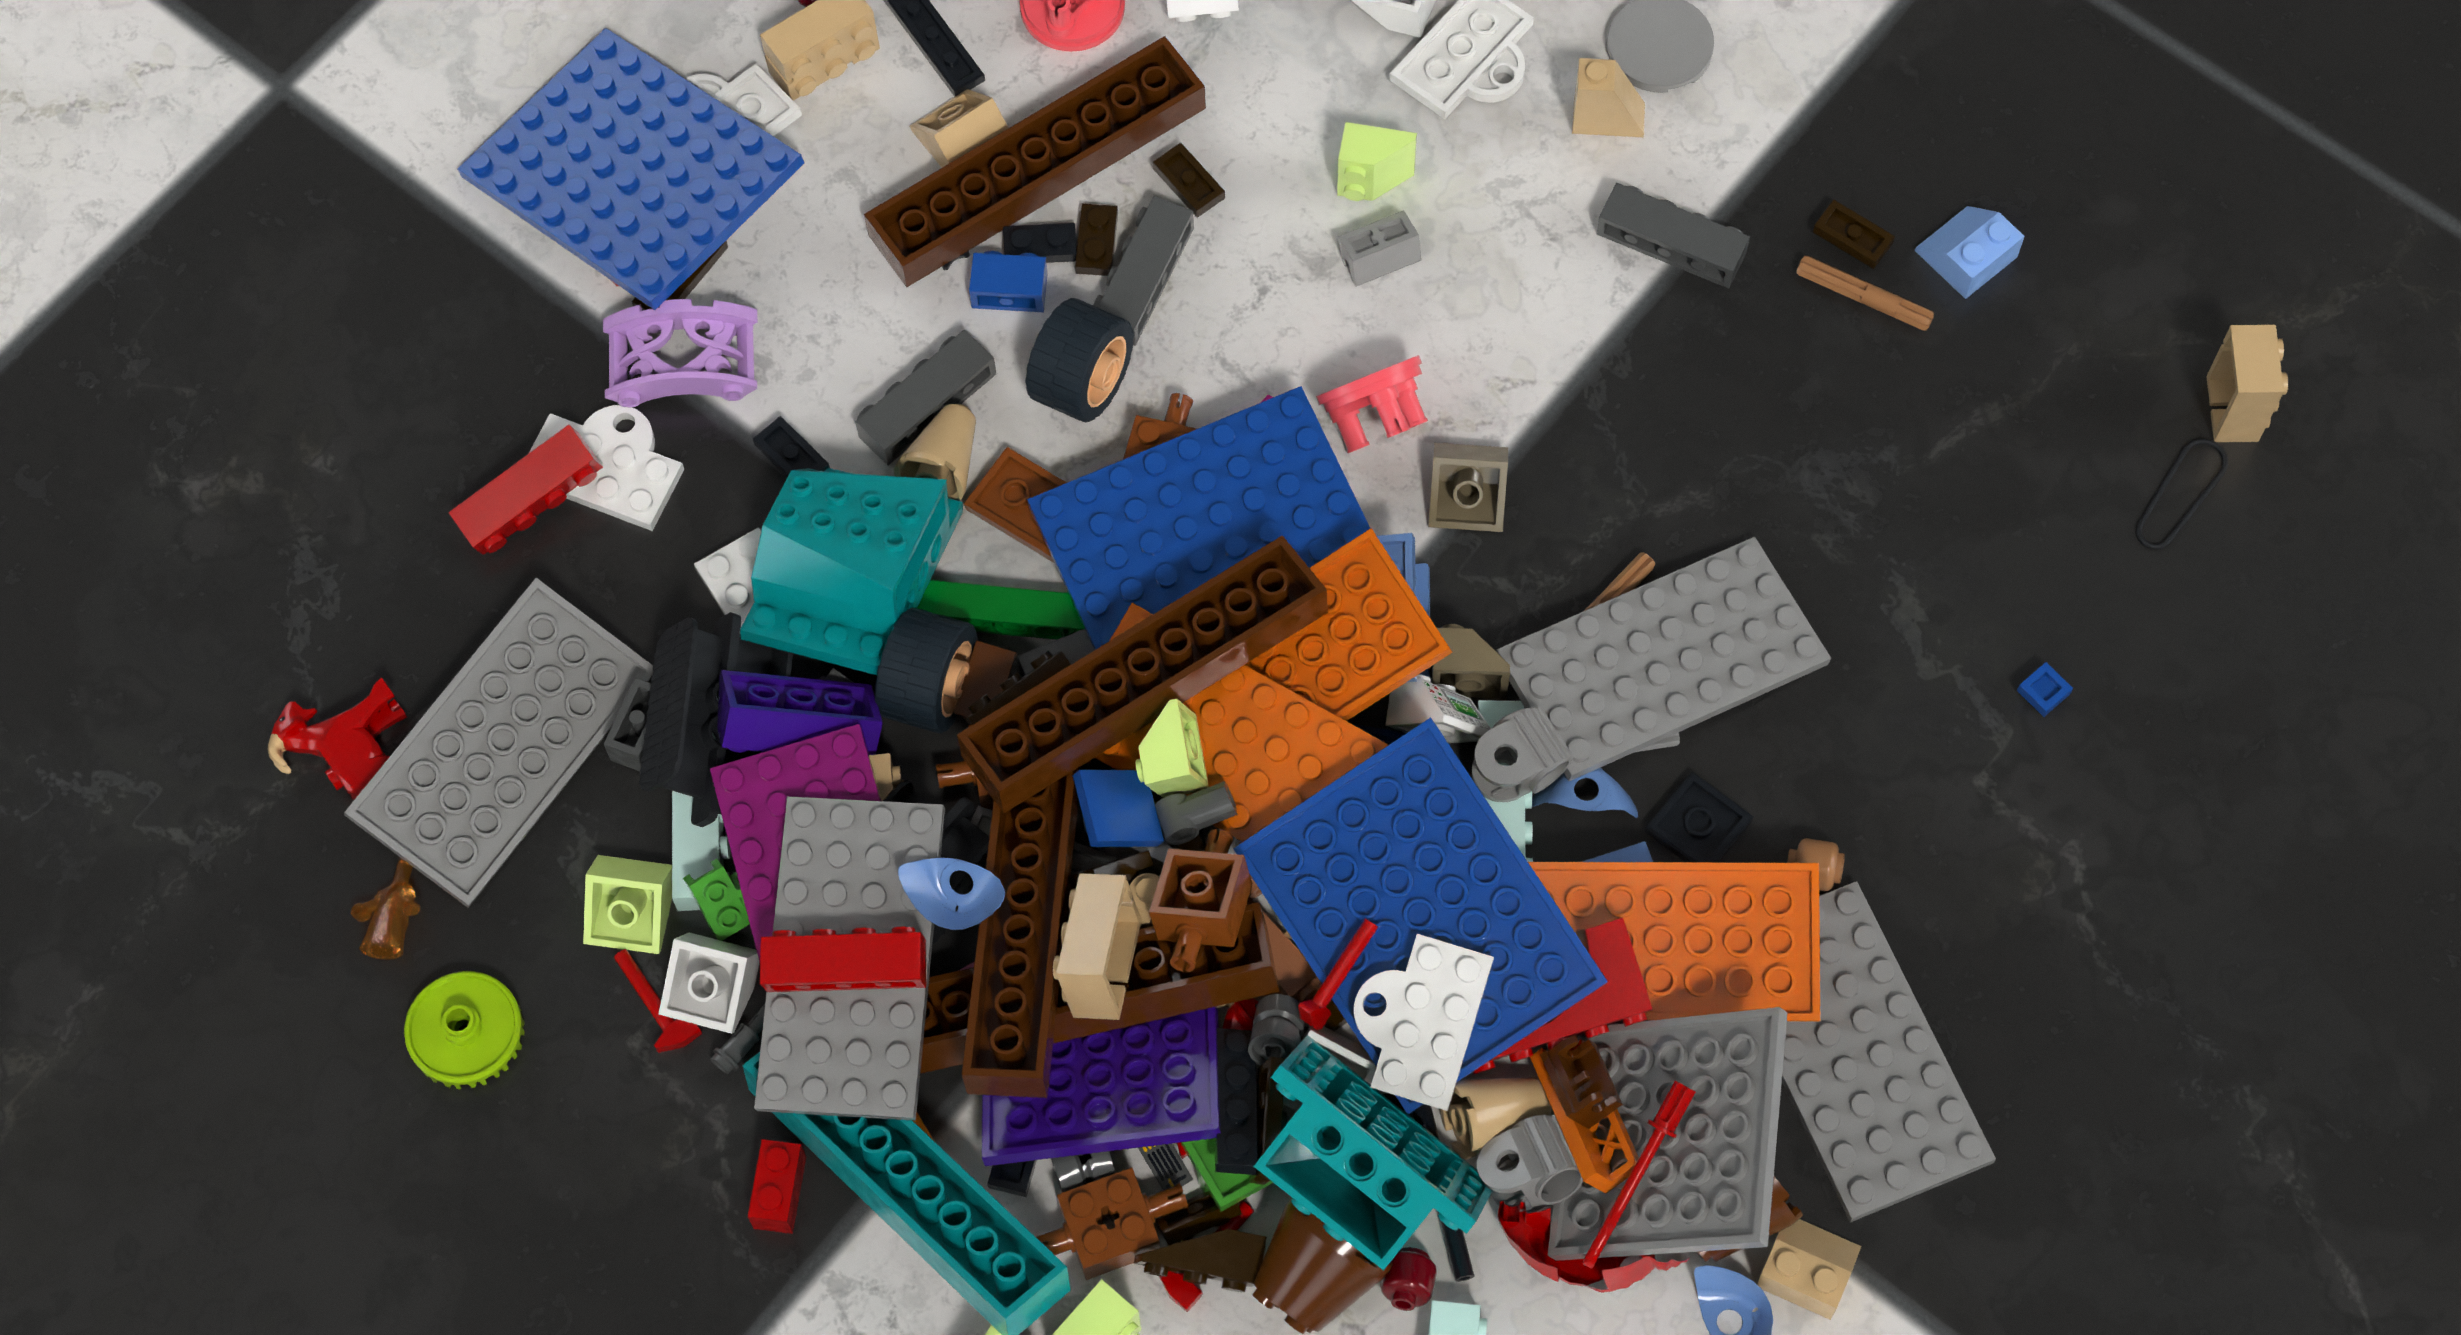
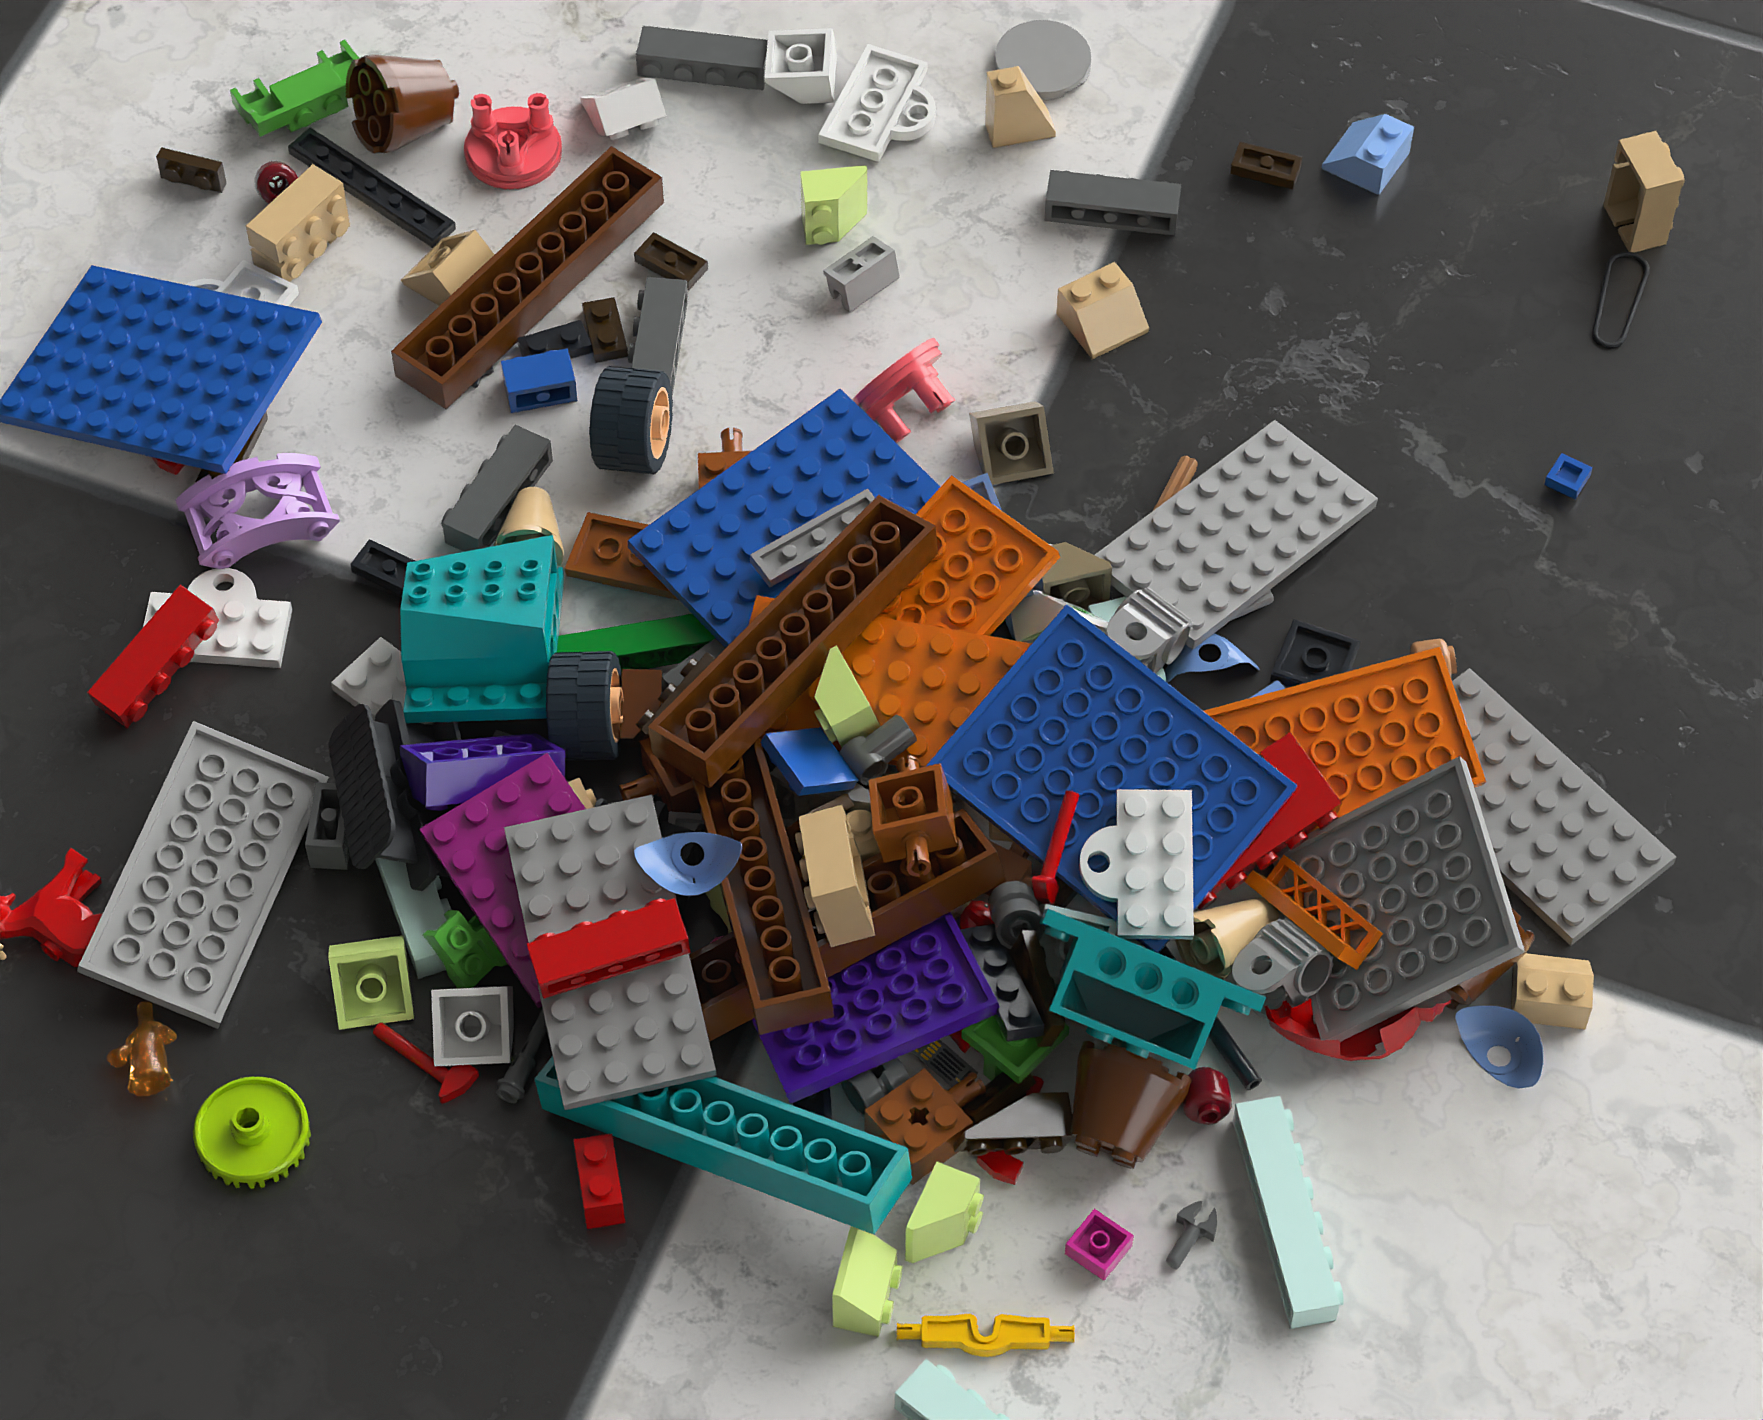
camera: 20 degrees left, 10 degrees down
(1212, 553) = (806, 542): none -> light grey plate
(1581, 1081) = (1301, 882): reddish brown hinge -> none
(1616, 360) = (1101, 310): none -> tan slope
(1664, 1123) = (1390, 888): red piece -> none
(1865, 293) = (1293, 208): medium nougat axle -> none

